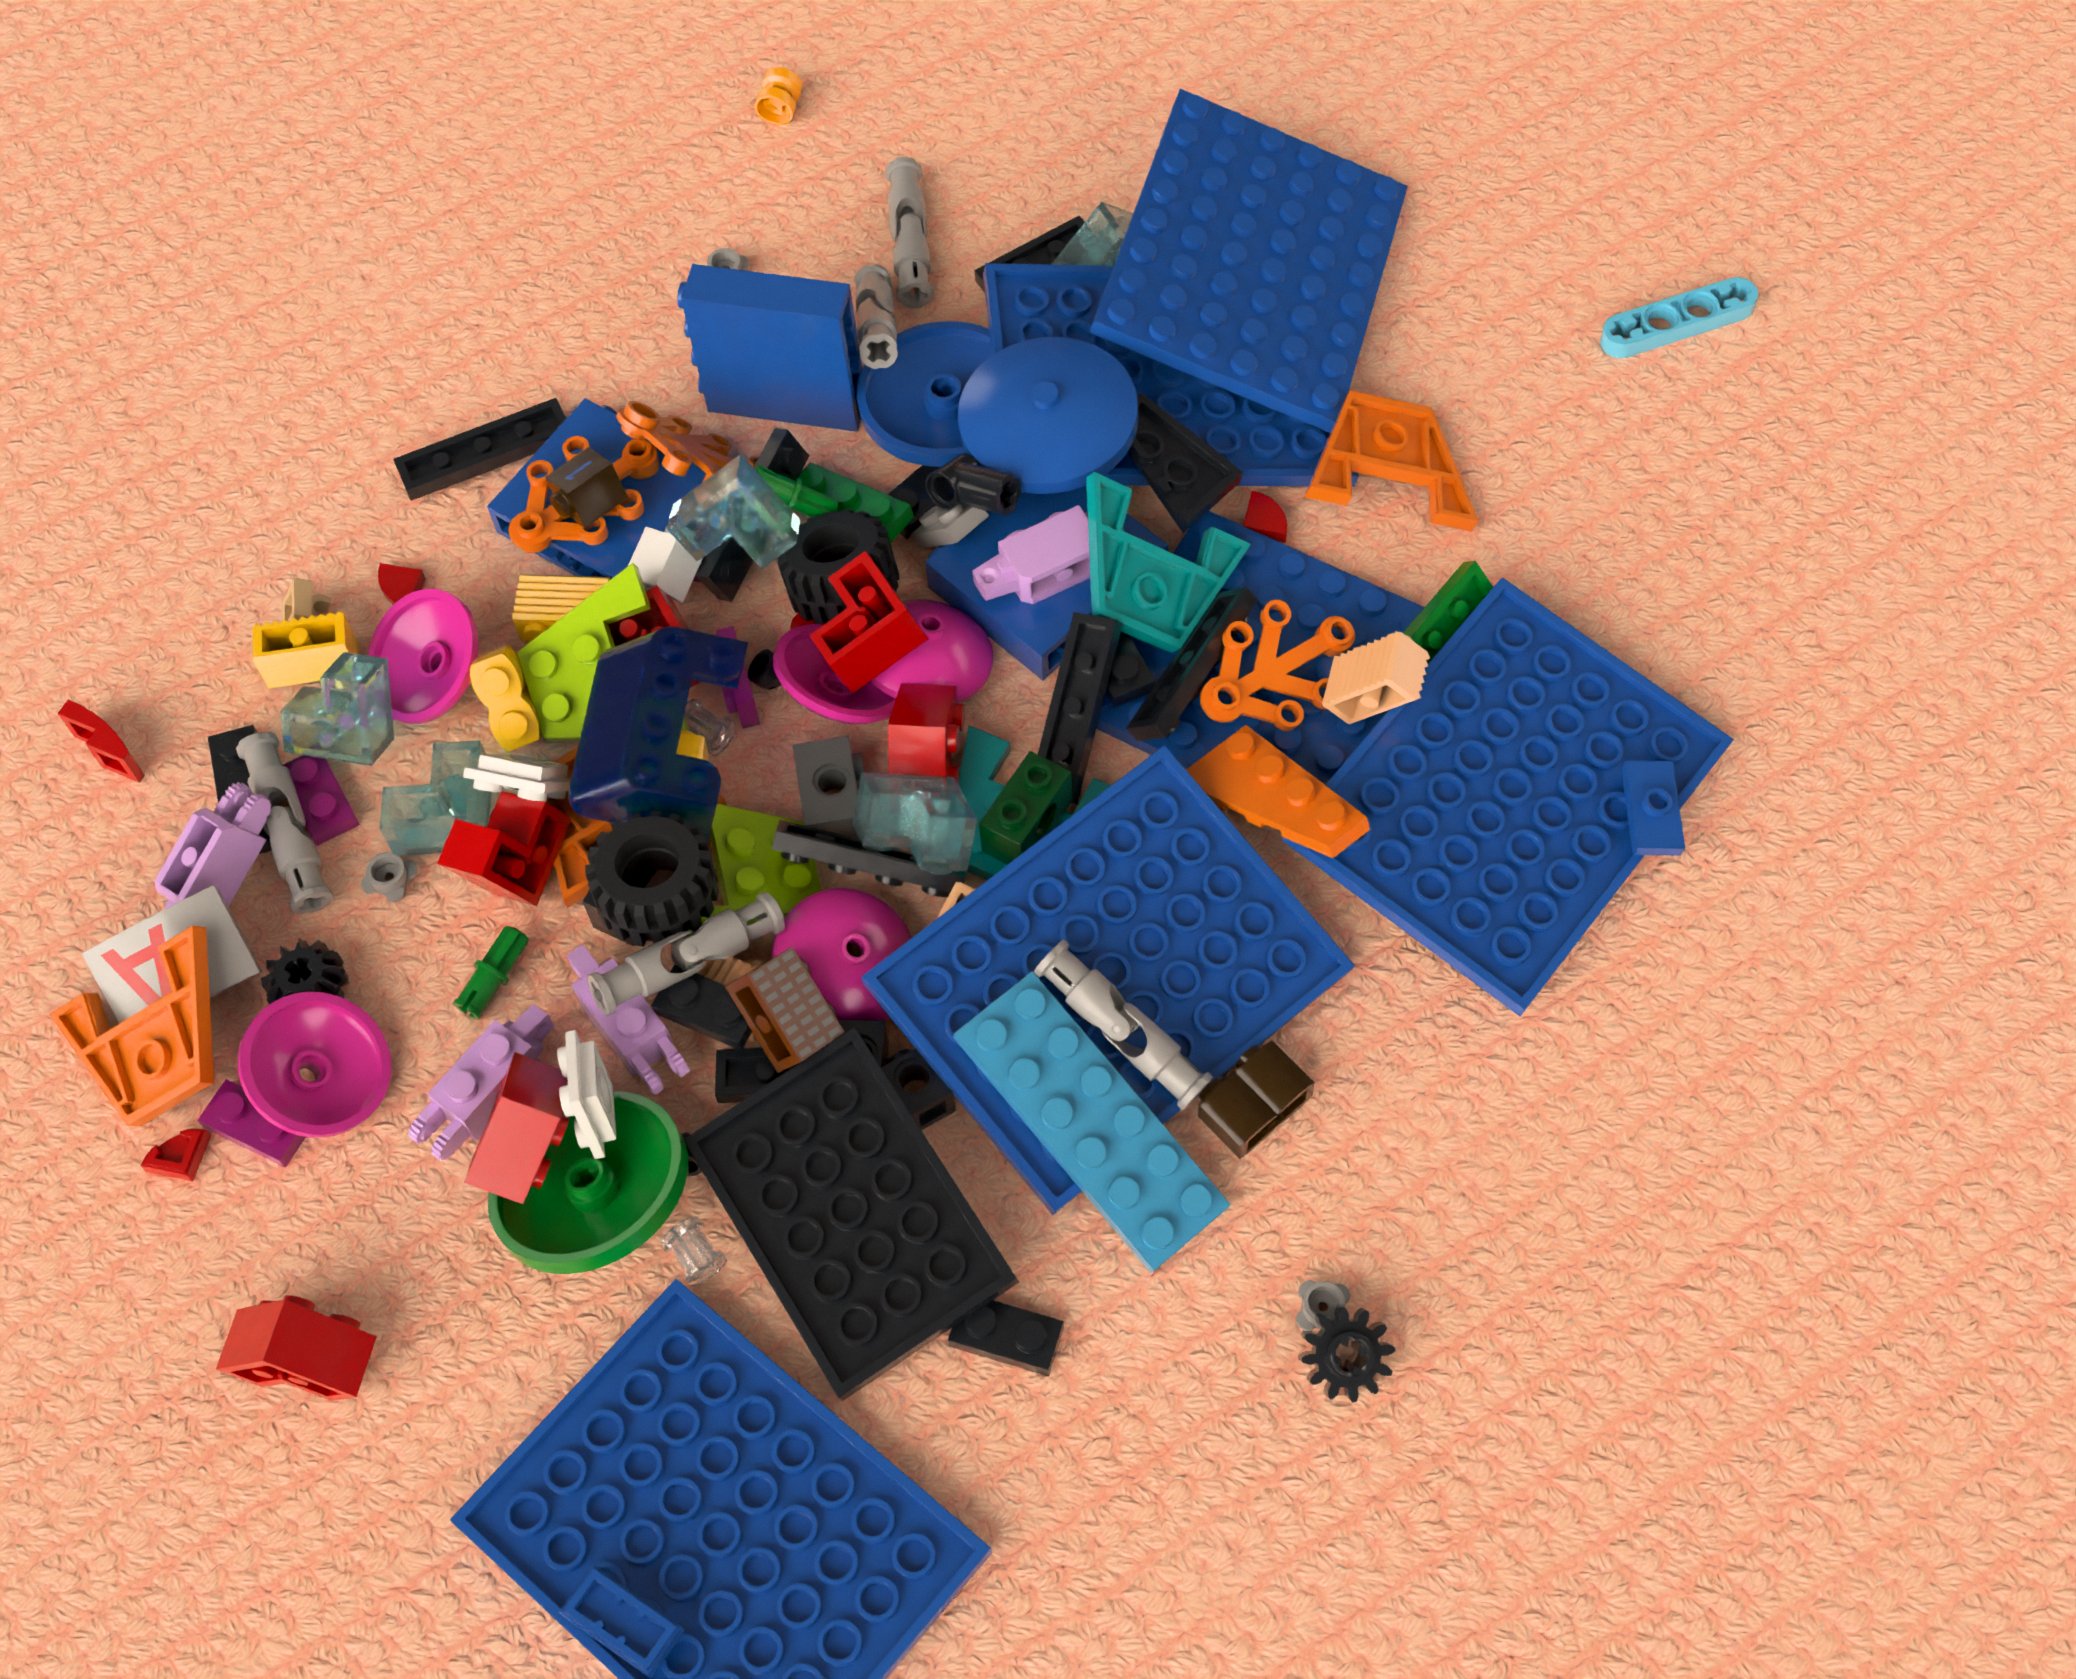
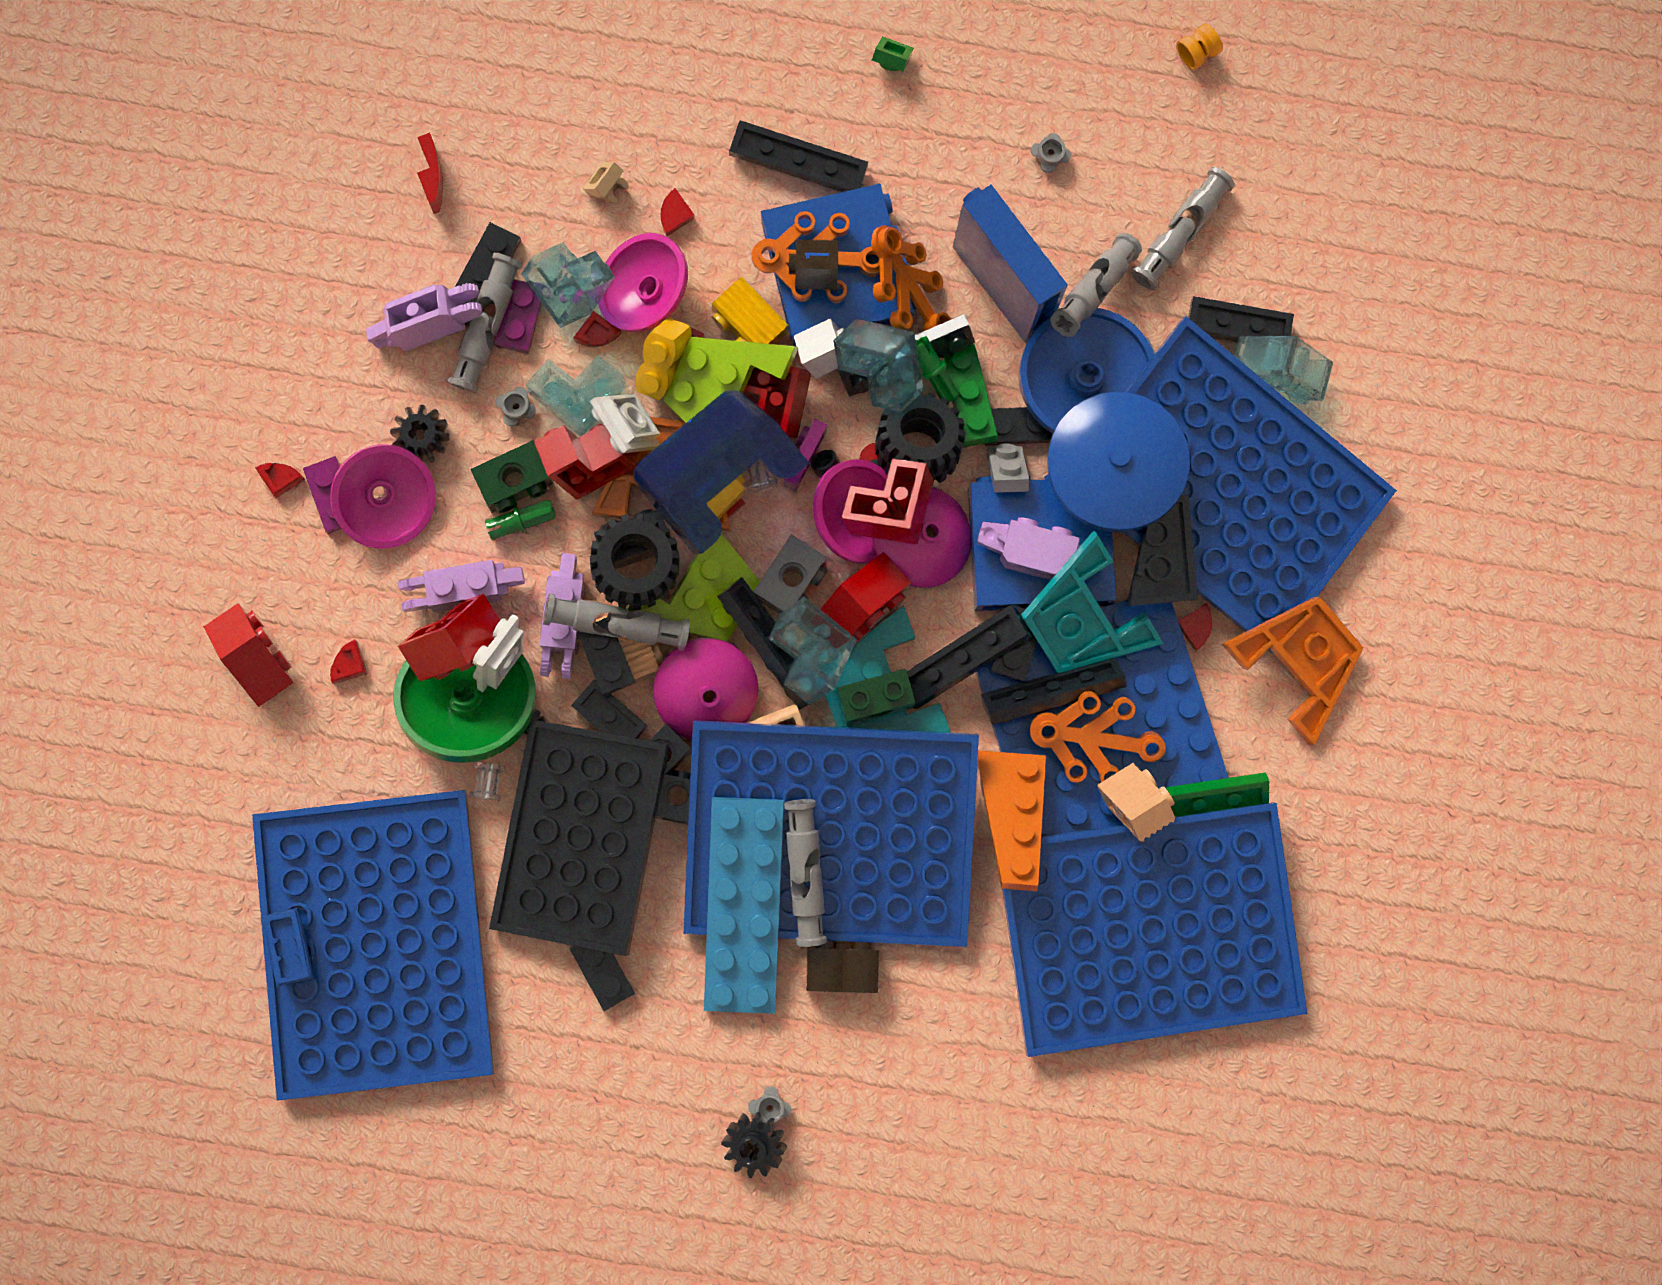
camera: 30 degrees right, 20 degrees up
(131, 965) = (359, 363): light grey slope -> none
(161, 1050) = (308, 412): orange wing -> none
(301, 648) = (583, 217): yellow brick -> none
(415, 746) = (596, 332): none -> red tile
(425, 1272) = (347, 663): none -> red tile
(445, 913) = (492, 474): none -> dark green brick
(496, 306) = (892, 54): none -> green plate
(785, 1009) = (640, 700): reddish brown brick -> none
(971, 485) = (1029, 463): black piece -> none
(1252, 261) = (1355, 453): blue plate -> none
(1653, 808) = (1215, 1013): blue plate -> none
(1681, 321) = (1578, 725): medium azure beam -> none

